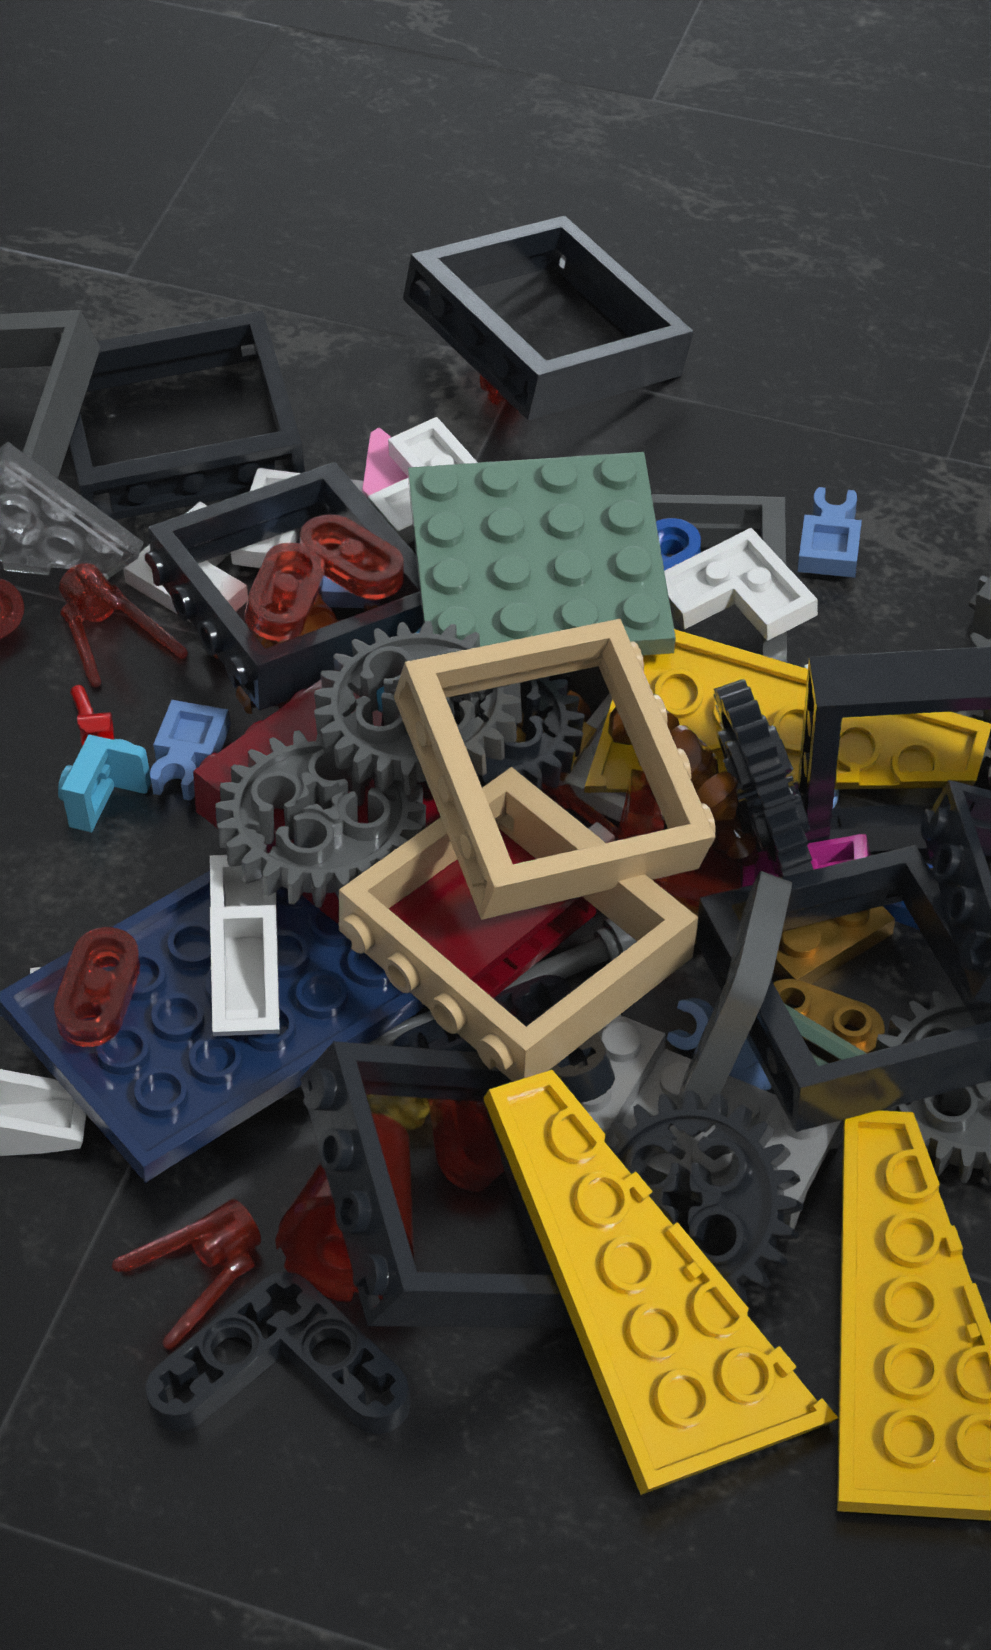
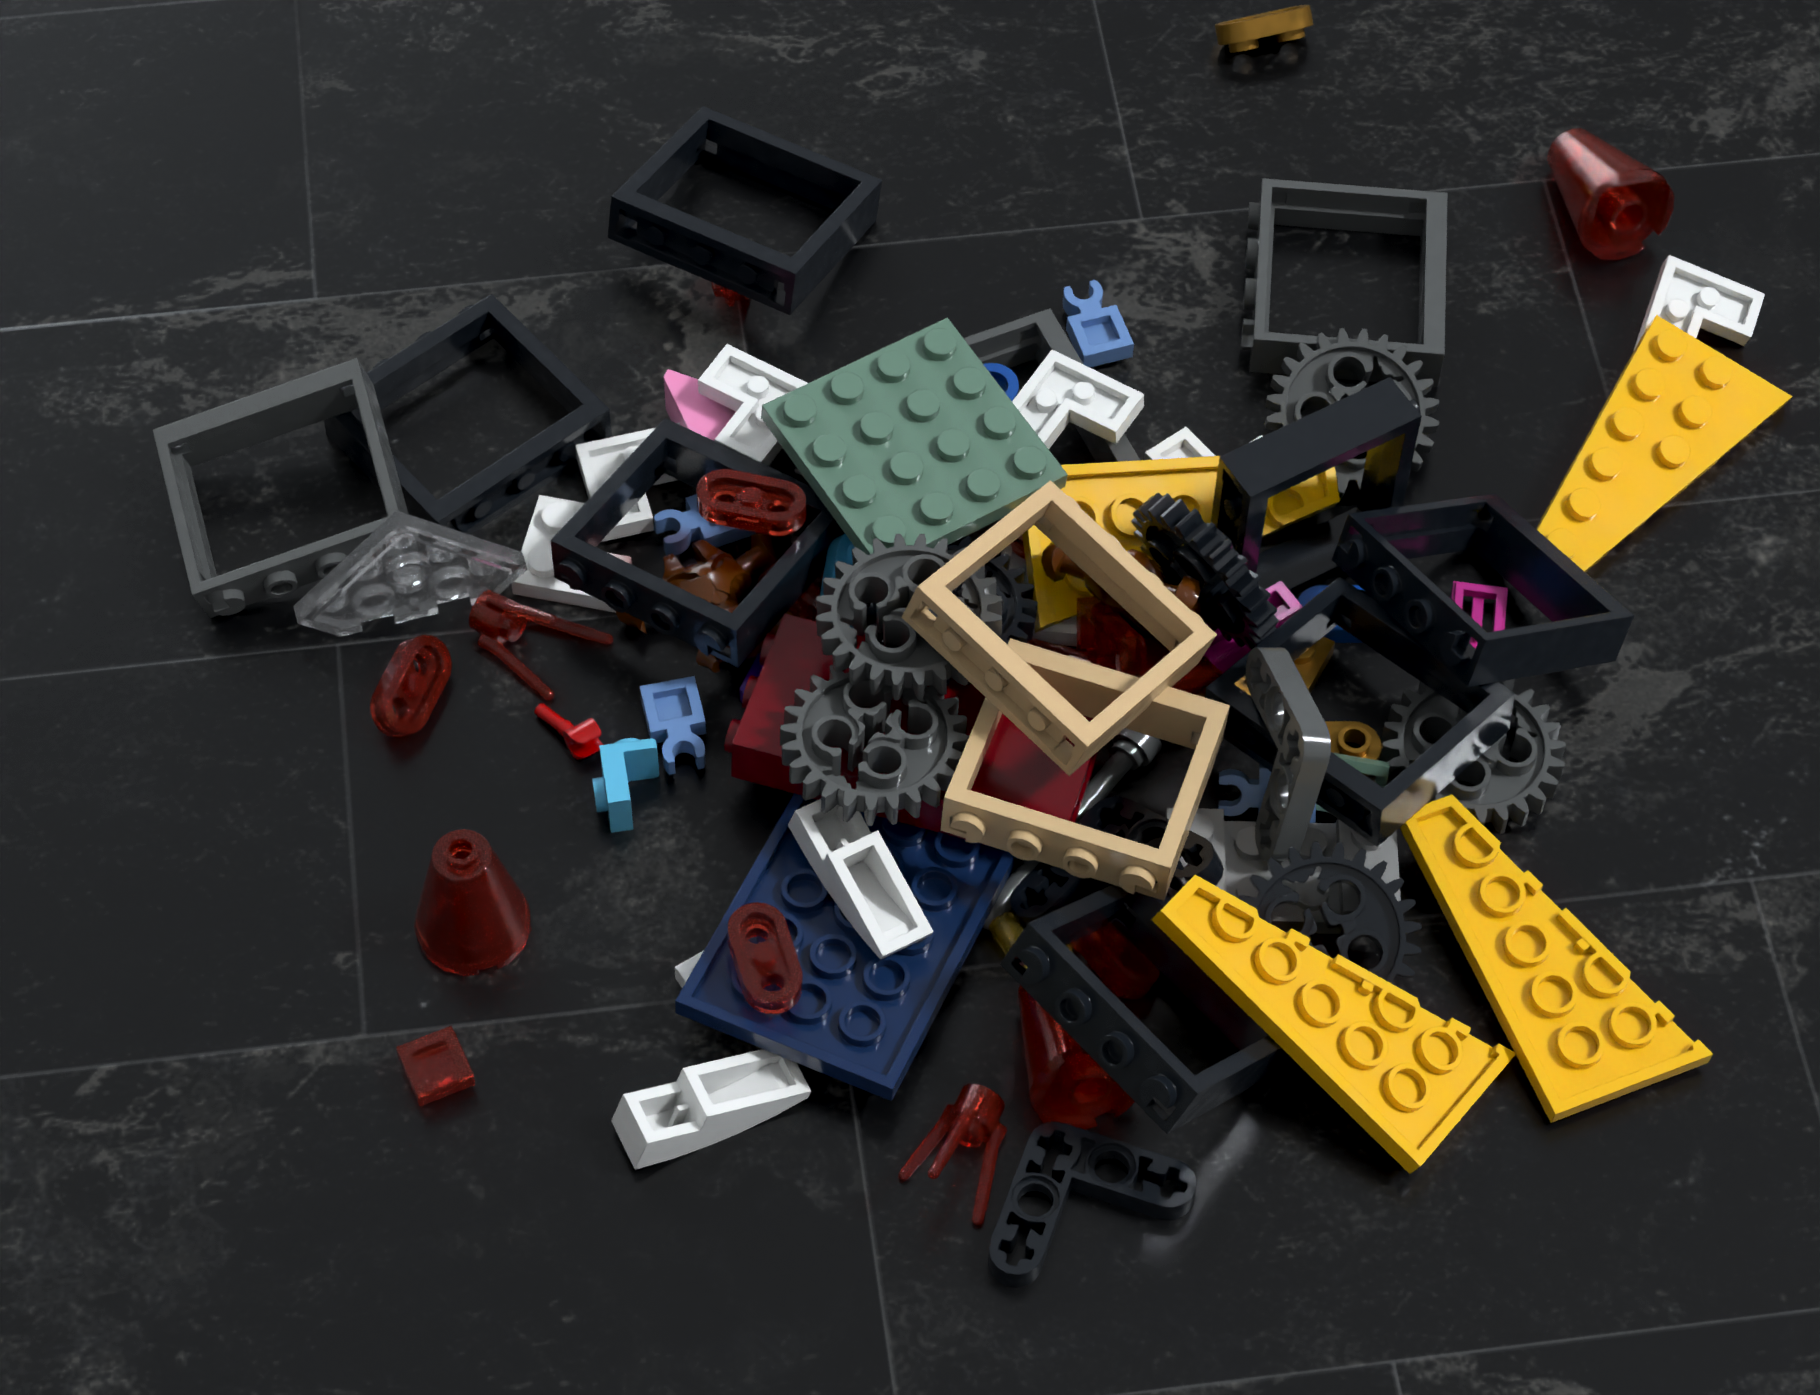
camera: 30 degrees left, 5 degrees up
(284, 591) = (720, 556): clear red plate -> none

